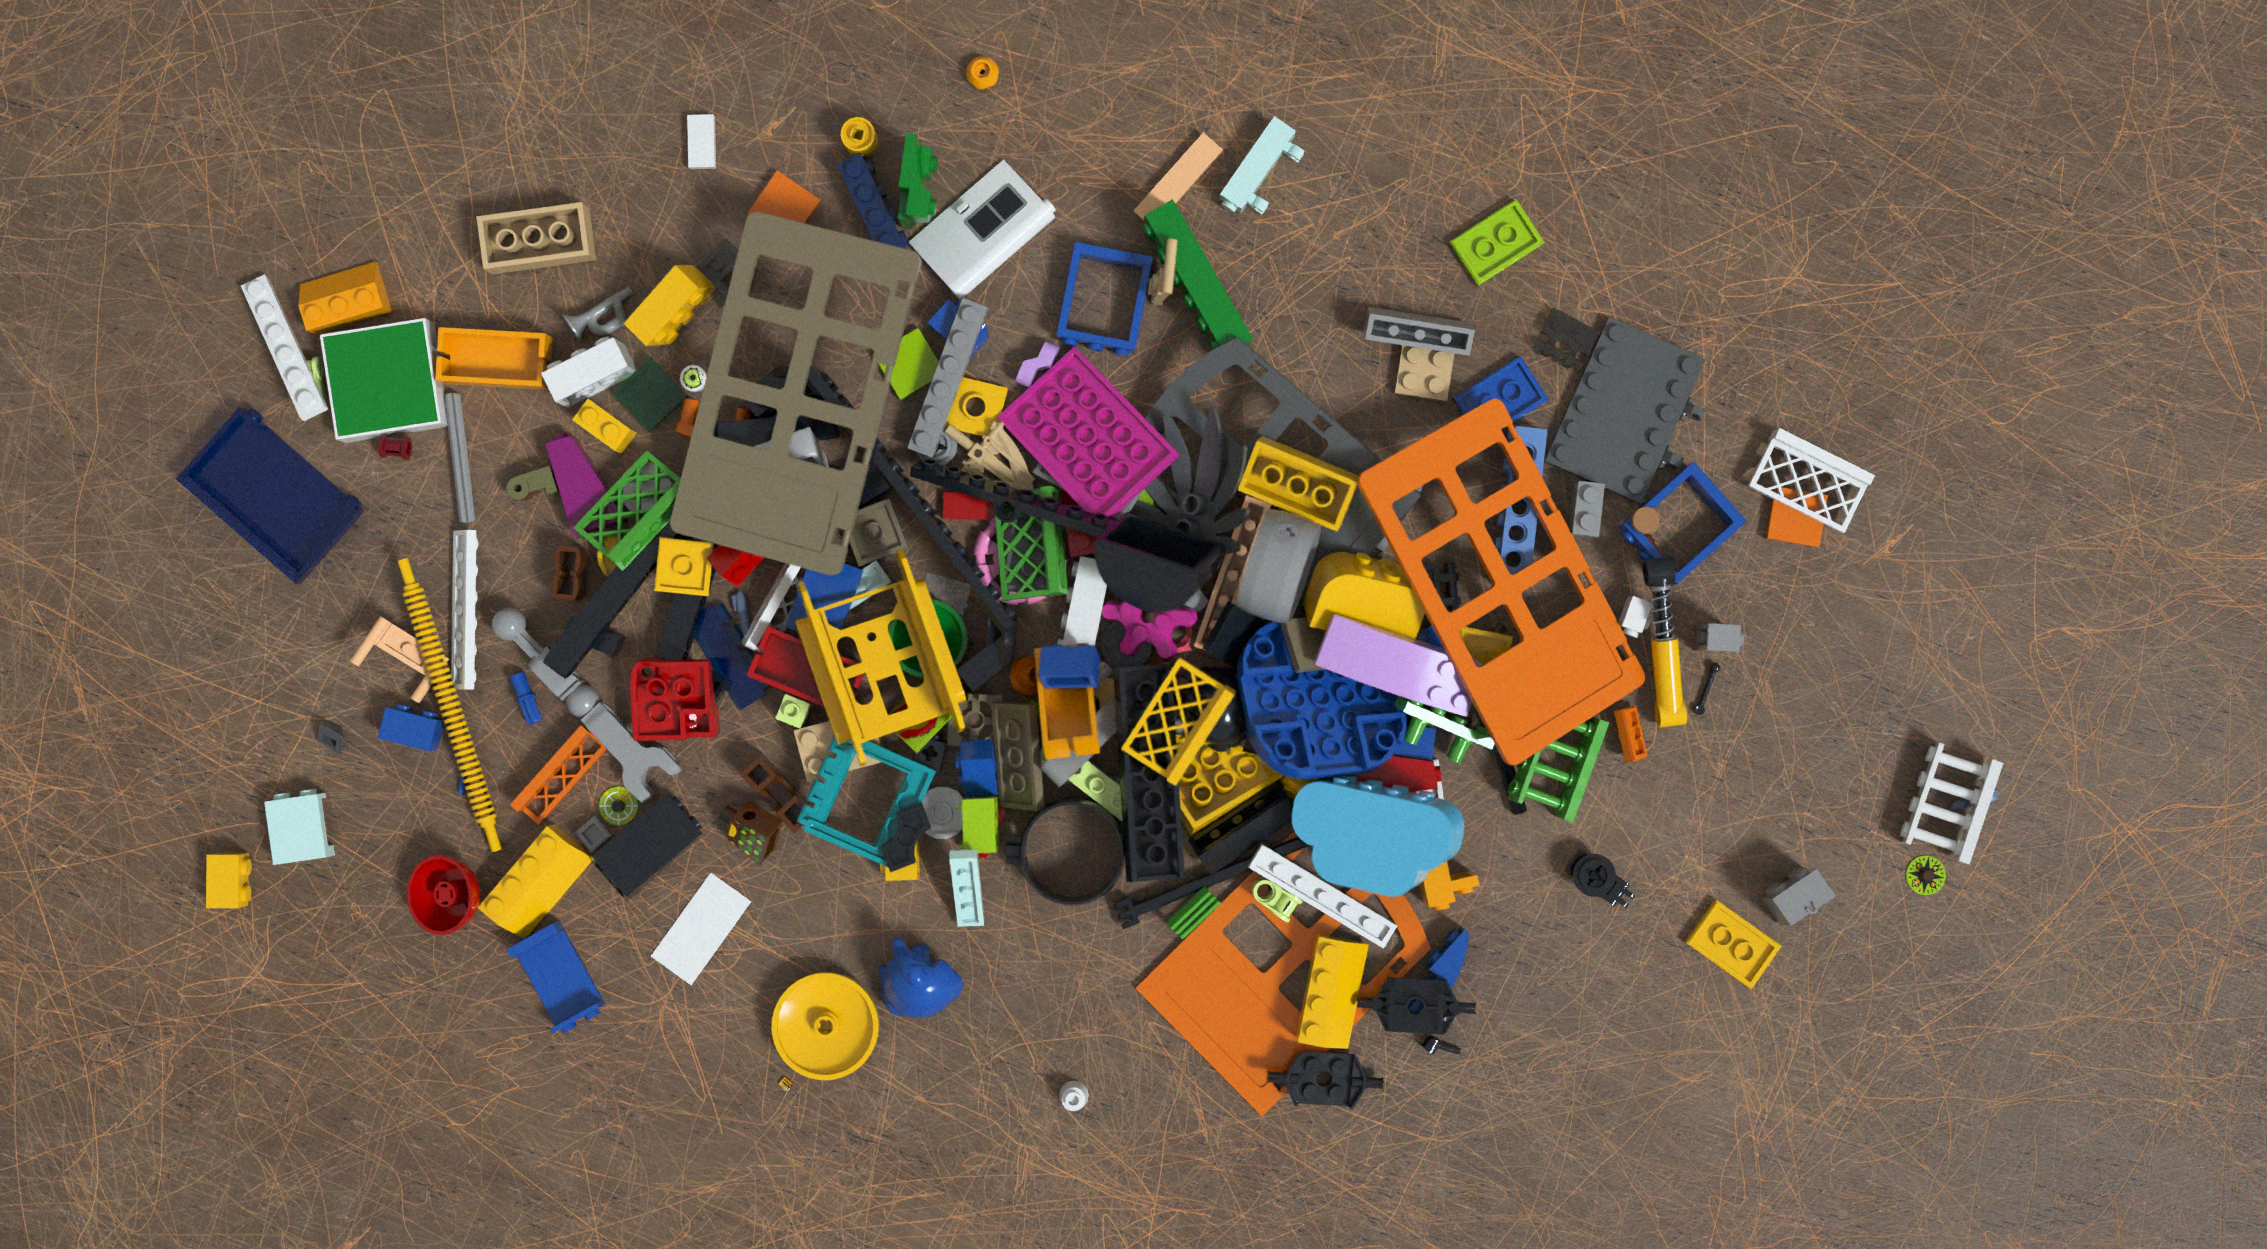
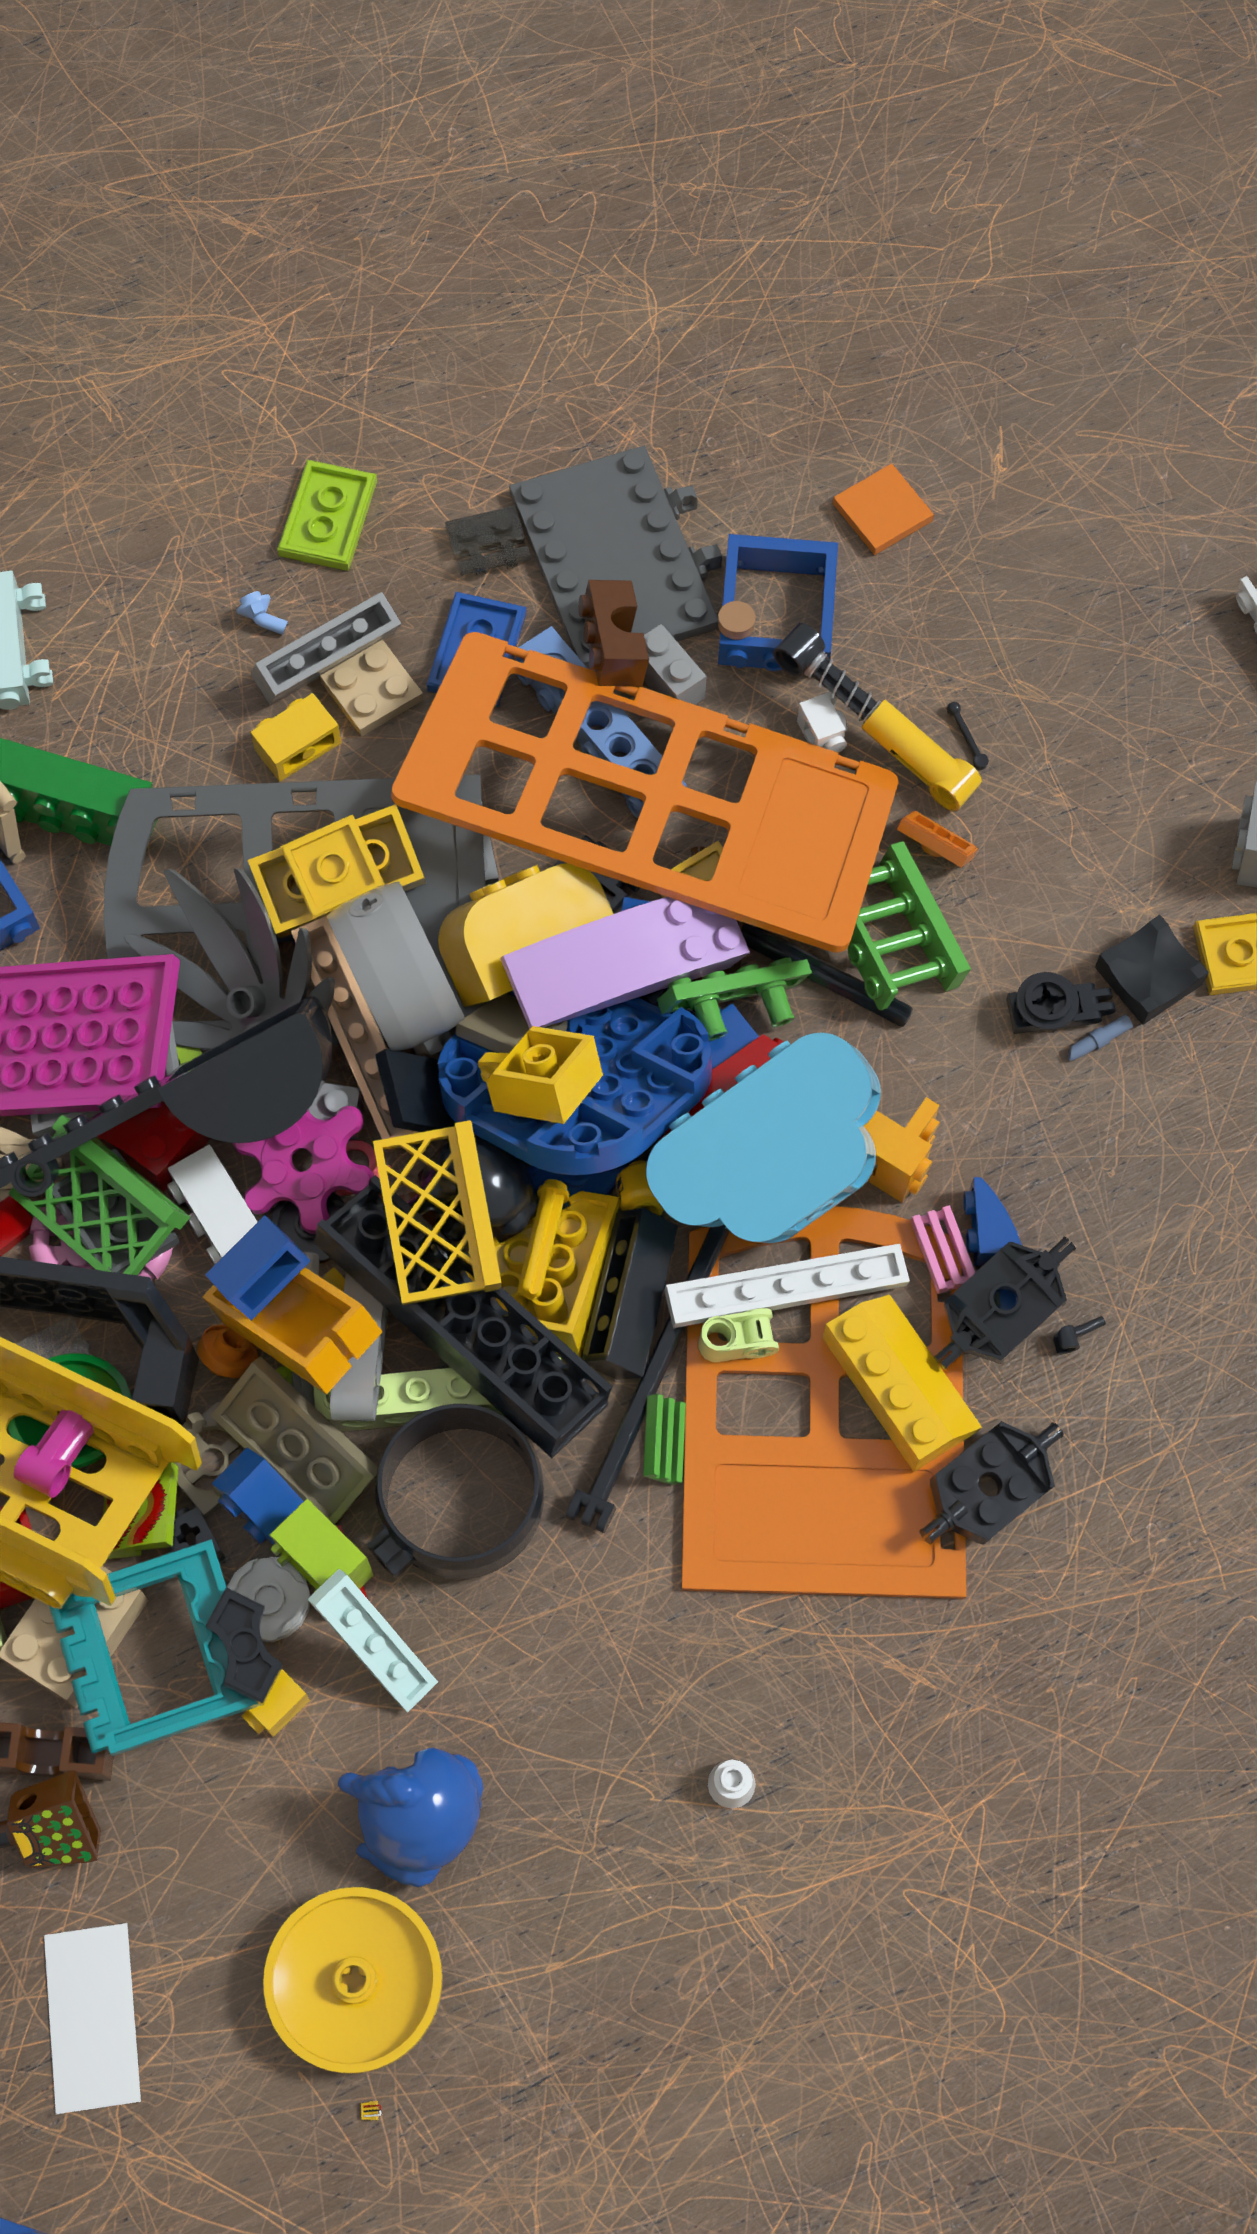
camera: 45 degrees left, 20 degrees down
(891, 664) = (49, 1463): none -> dark pink piece
(1221, 767) = (552, 1197): none -> yellow axle
(1294, 697) = (542, 1074): none -> yellow hinge
(1295, 485) = (332, 866): none -> yellow tile
(1357, 366) = (295, 736): none -> yellow brick
(1405, 268) = (255, 607): none -> light blue plate
(1427, 926) = (933, 1218): none -> bright pink tile
(1560, 482) = (609, 616): none -> reddish brown arch
(1605, 912) = (1099, 1037): none -> sand blue piece
(1665, 905) = (1151, 970): none -> black brick
(1718, 637) = (925, 668): light grey brick -> none
(1817, 458) = (851, 439): white fence -> none

